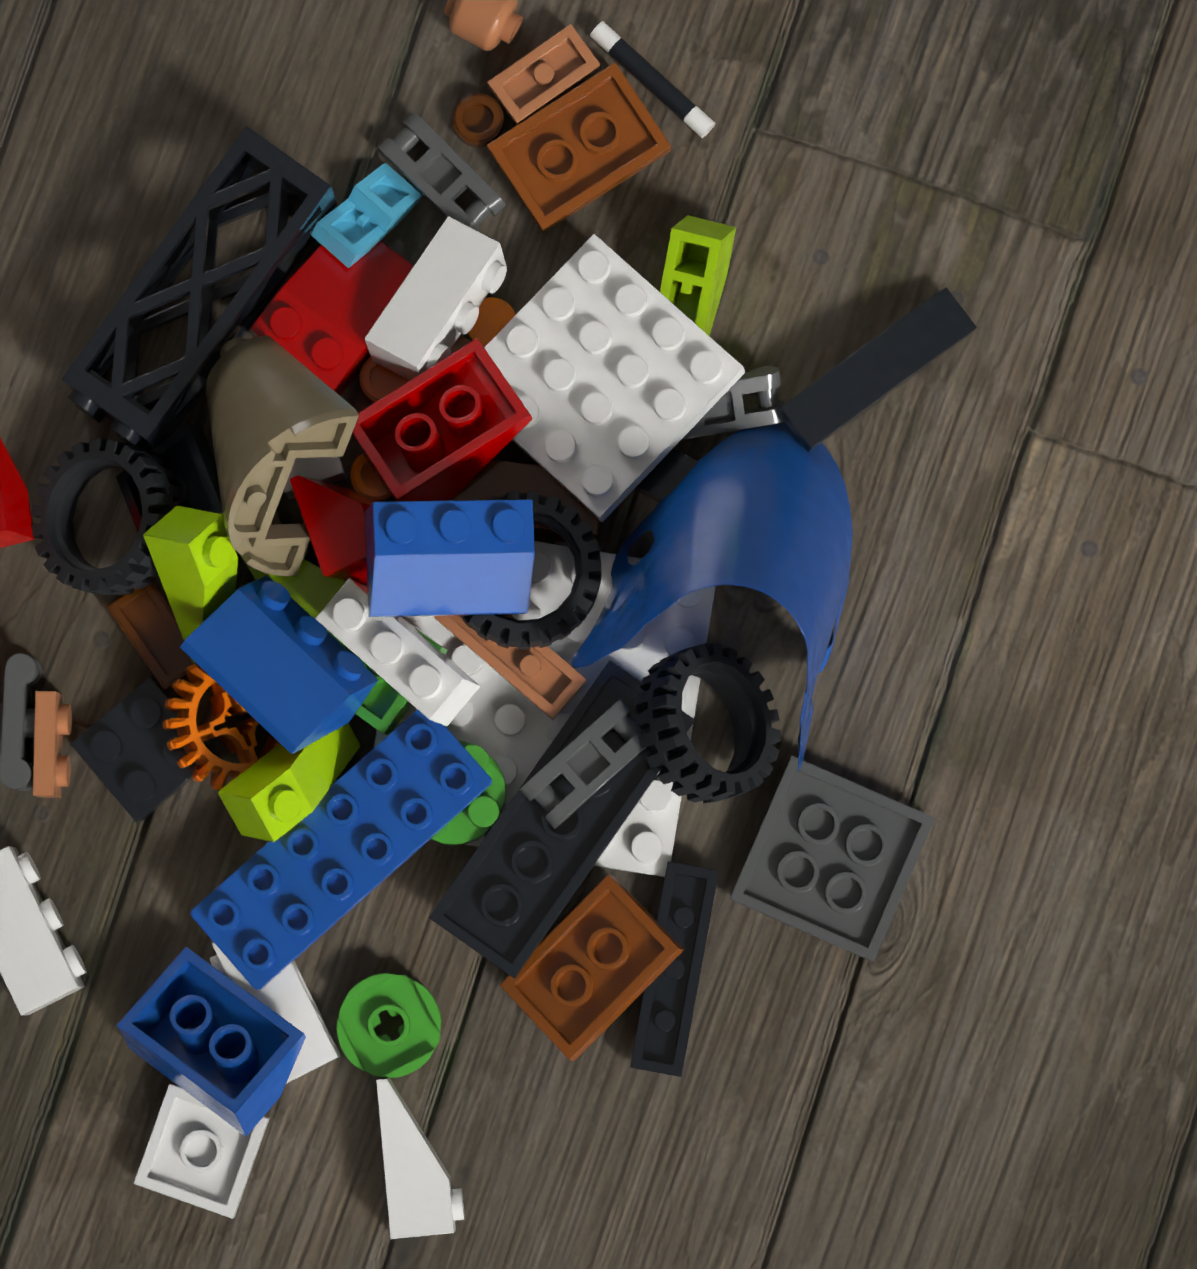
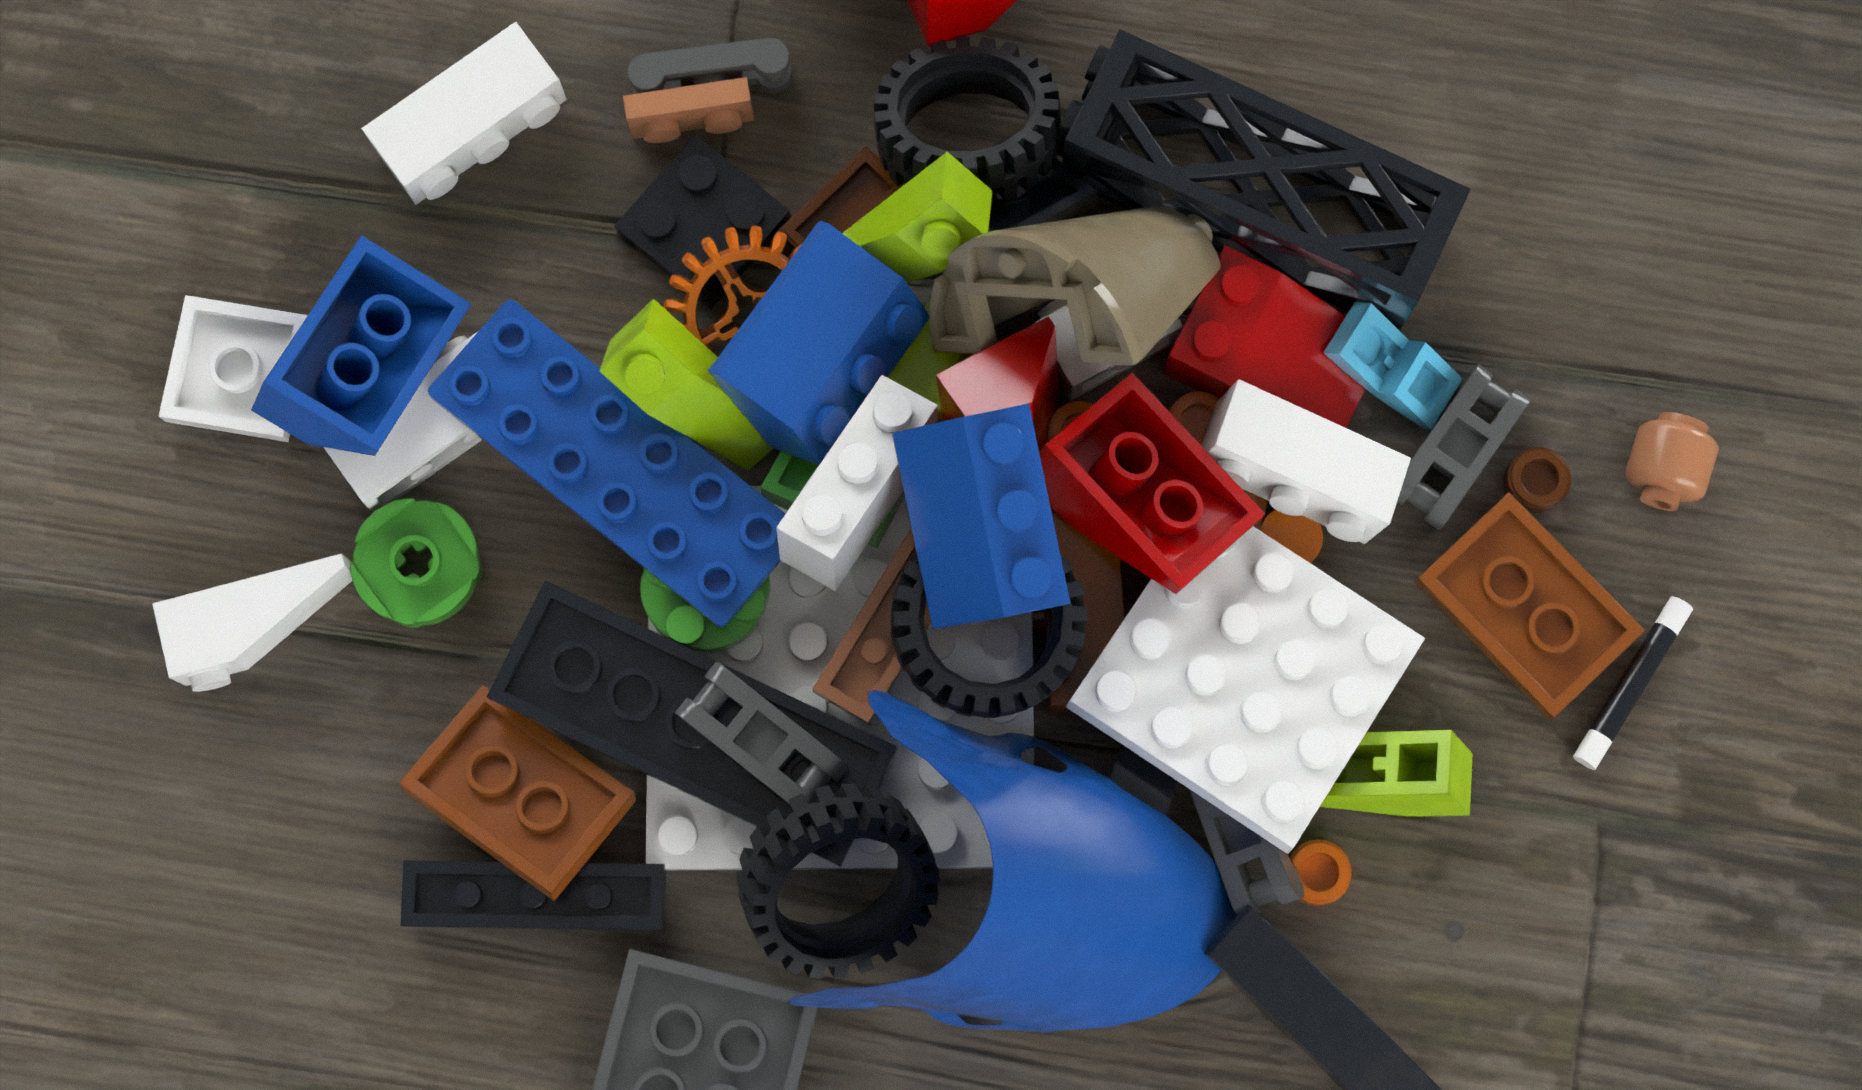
camera: 80 degrees right, 5 degrees down
(544, 75) = (1611, 548): nougat plate -> none
(759, 348) = (1323, 871): none -> orange tile

